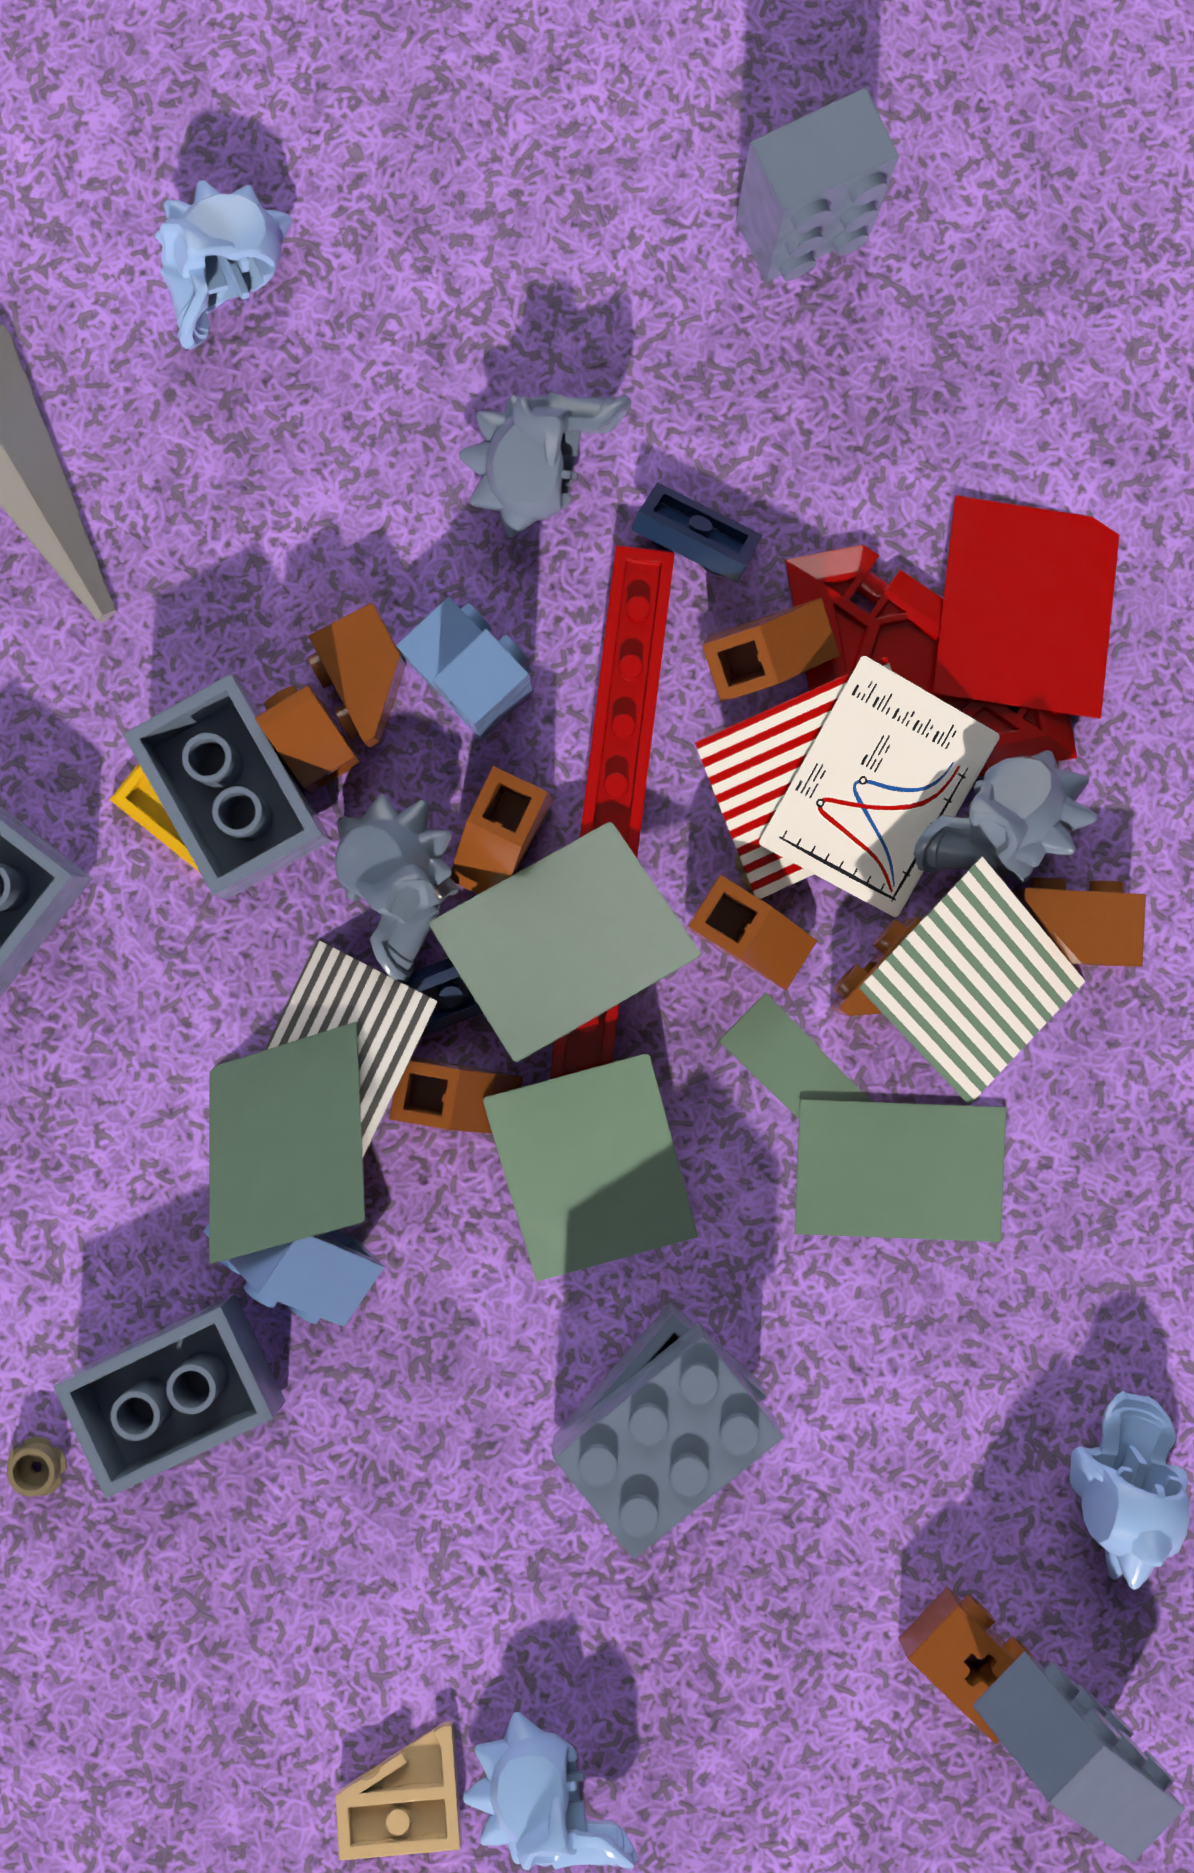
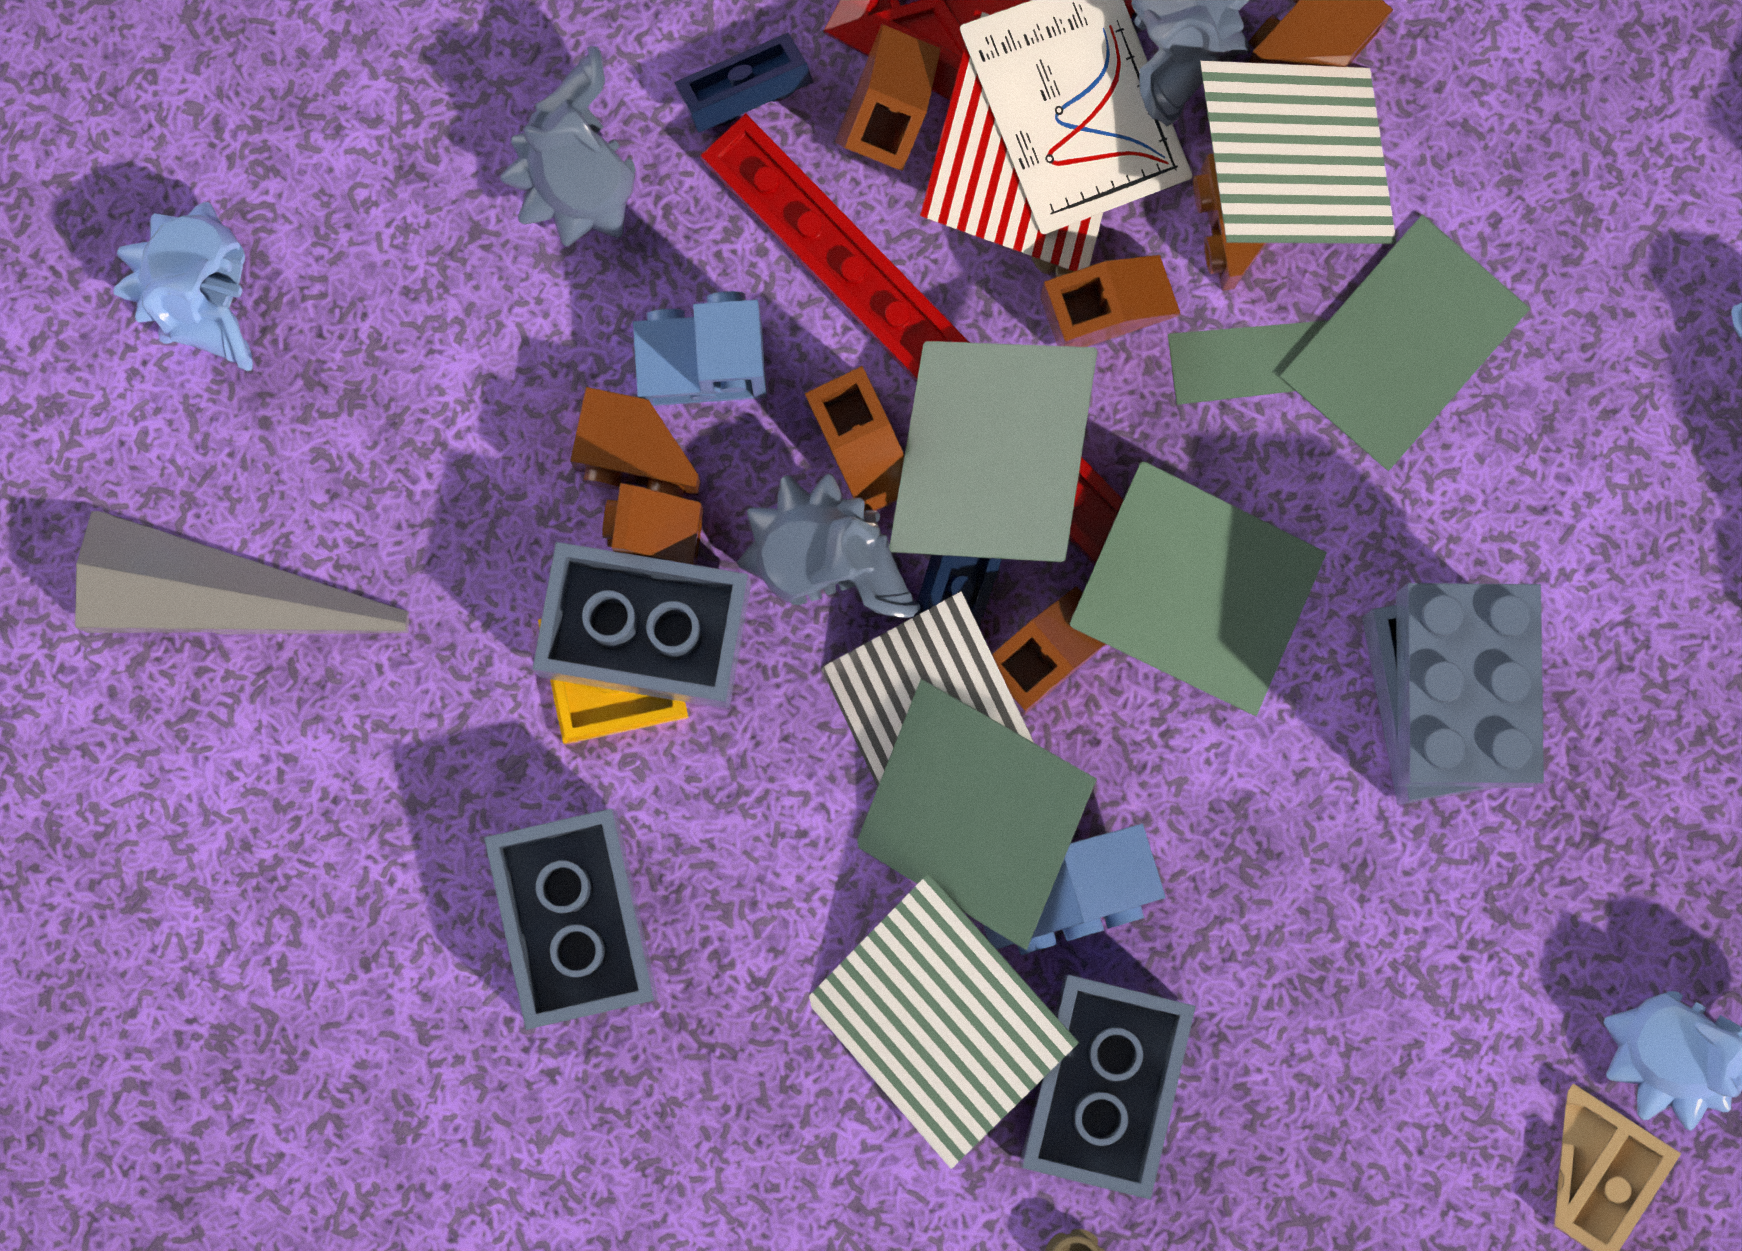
camera: 50 degrees left, 5 degrees down
(121, 1238) = (941, 1021): none -> sticker

